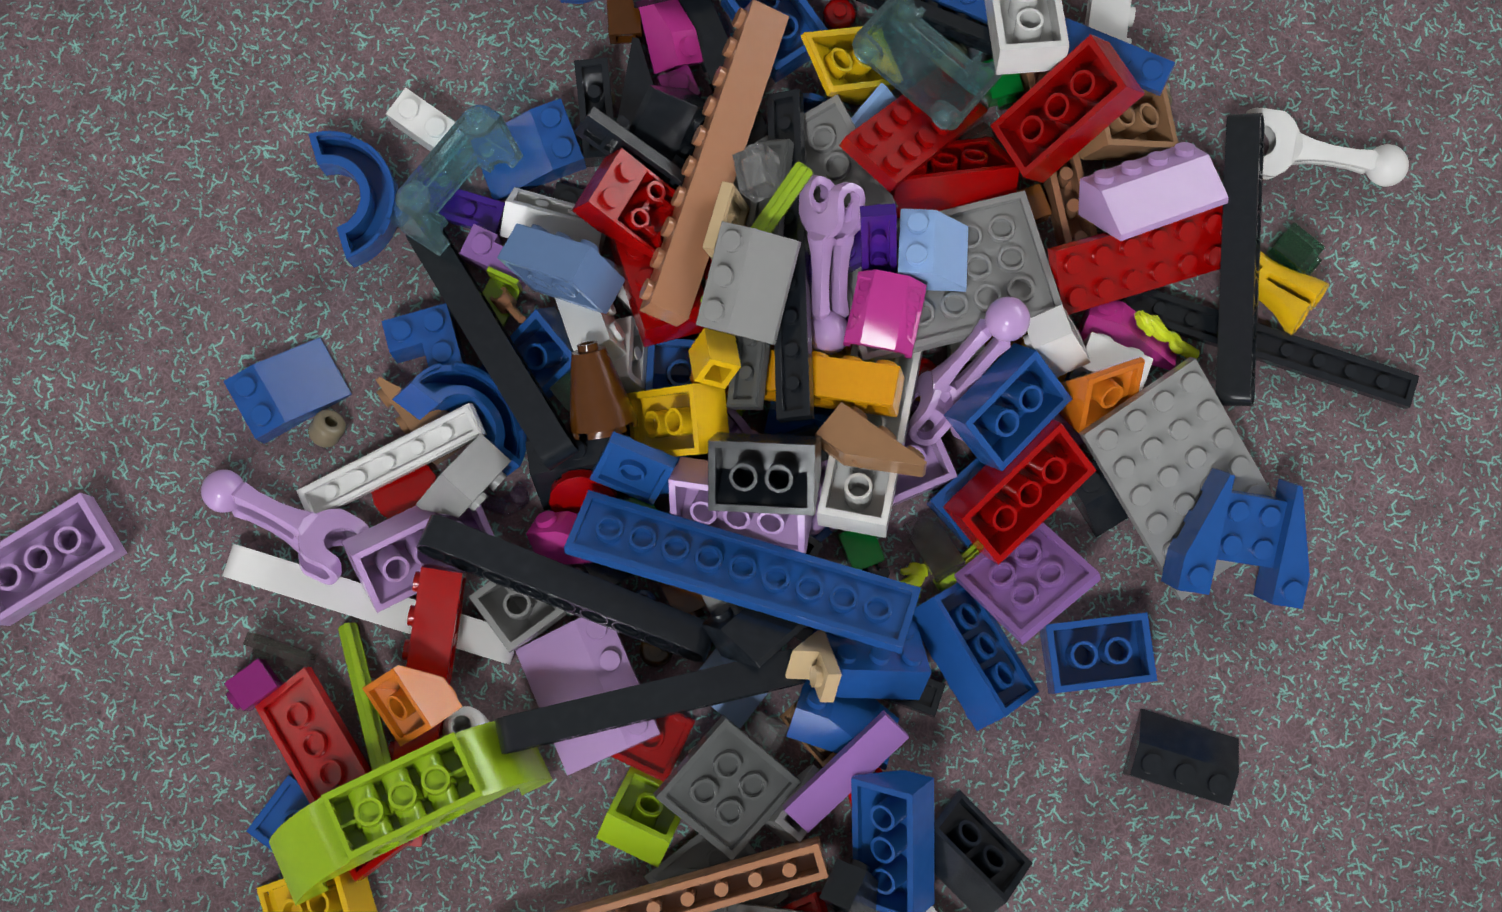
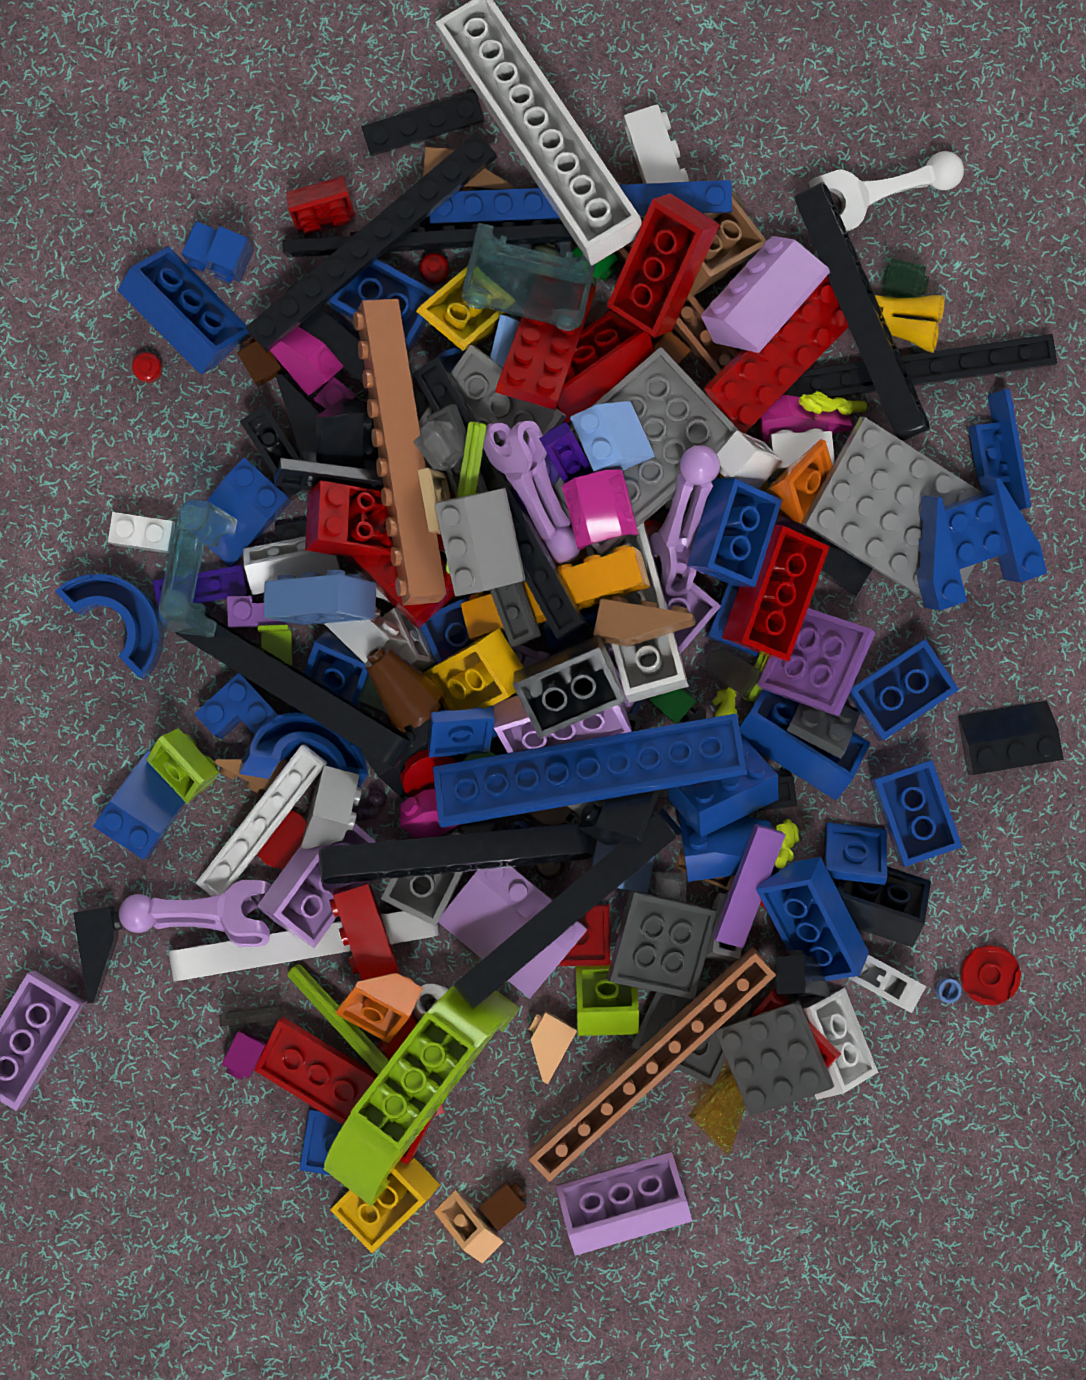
camera: 20 degrees left, 5 degrees up
(167, 499) = (96, 939): none -> black slope
(326, 428) = (194, 821): dark tan piece -> none
(344, 365) = (182, 764): none -> lime slope
(507, 304) = (286, 648): nougat hand -> none
(564, 830) = (550, 1041): none -> light nougat slope
(714, 358) = (482, 614): yellow brick -> none
(817, 663) = (683, 813): tan slope -> none
(909, 747) = (791, 837): none -> neon yellow animal
(970, 795) = (856, 853): none -> blue plate
(1001, 651) = (823, 728): none -> dark grey plate
(1051, 785) = (916, 813): none -> blue brick
(1312, 459) = (998, 448): none -> blue bracket

